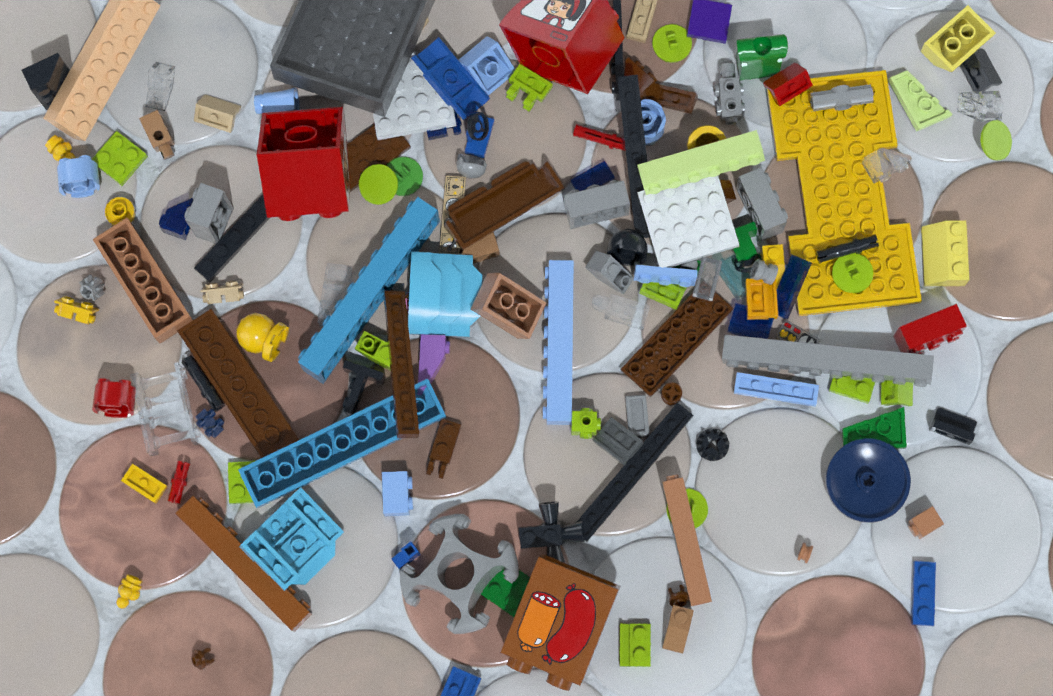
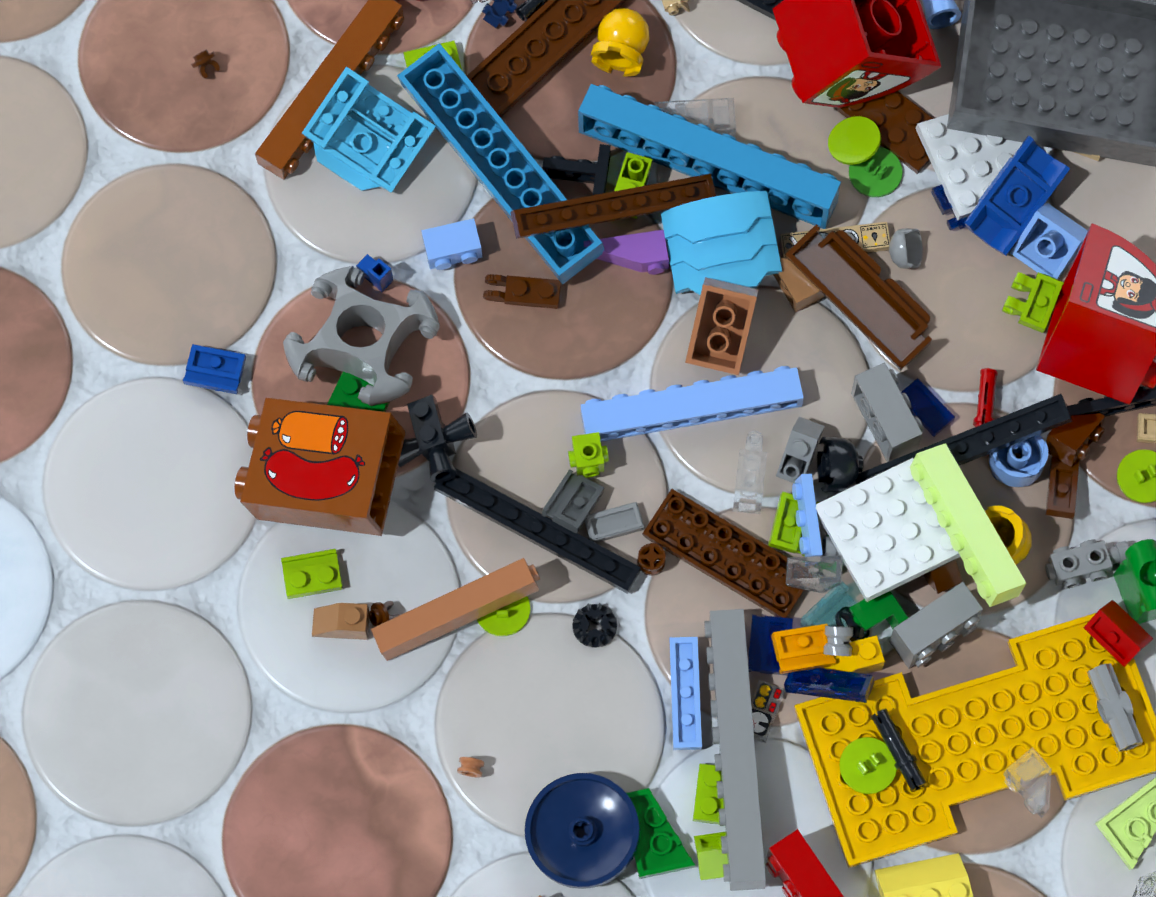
camera: 75 degrees right, 5 degrees down
(478, 134) = (953, 249): blue piece -> none

